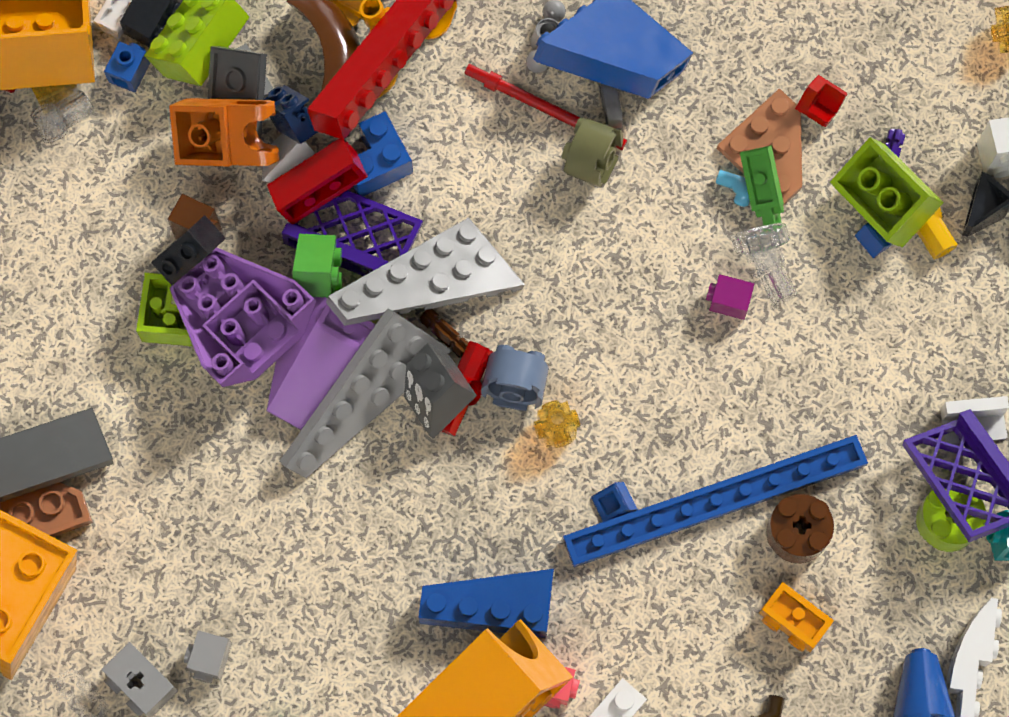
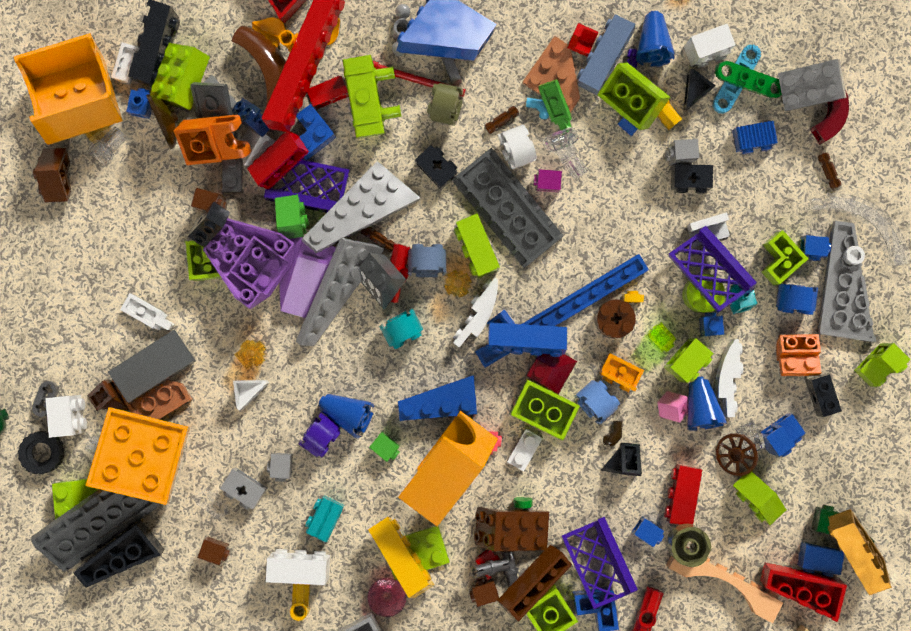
camera: 15 degrees left, 15 degrees up
(55, 374) = (146, 313): none -> white hinge
(158, 90) = (165, 119): none -> dark brown dish
(184, 523) = (247, 390): none -> white slope
(198, 474) = (245, 357): none -> clear yellow brick
(241, 194) = (232, 175): none -> flat silver plate
(282, 616) = (319, 435): none -> dark purple brick
(337, 591) = (348, 413): none -> blue cone
(385, 660) = (385, 447): none -> bright green brick
(415, 105) = (328, 92): none -> red panel
(452, 473) = (401, 328): none -> teal brick
(469, 117) = (364, 96): none -> lime piece
(560, 258) = (426, 161): none -> black brick
(589, 468) = (483, 307): none -> white slope
(598, 371) = (476, 246): none -> lime brick
(652, 528) = (527, 338): none -> blue brick
(658, 327) = (507, 208): none -> dark grey ladder
(658, 649) = (544, 409): none -> lime brick
(674, 194) = (502, 119): none -> reddish brown axle
(681, 589) = (551, 371): none -> dark red slope
(692, 235) = (517, 147): none -> white brick
(748, 653) = (597, 401): none -> medium blue brick
(836, 501) = (633, 297): none -> yellow plate
(858, 119) = (606, 54): none -> sand blue brick
(870, 574) = (661, 337): none -> clear neon green brick
(872, 690) = (673, 406): none -> bright pink panel
(904, 619) = (689, 360): none -> lime brick
(932, 125) = (655, 41): none -> blue cone
(950, 291) = (682, 152): none -> light grey brick
(956, 570) = (711, 325): none -> blue brick
(974, 331) = (702, 174): none -> black brick

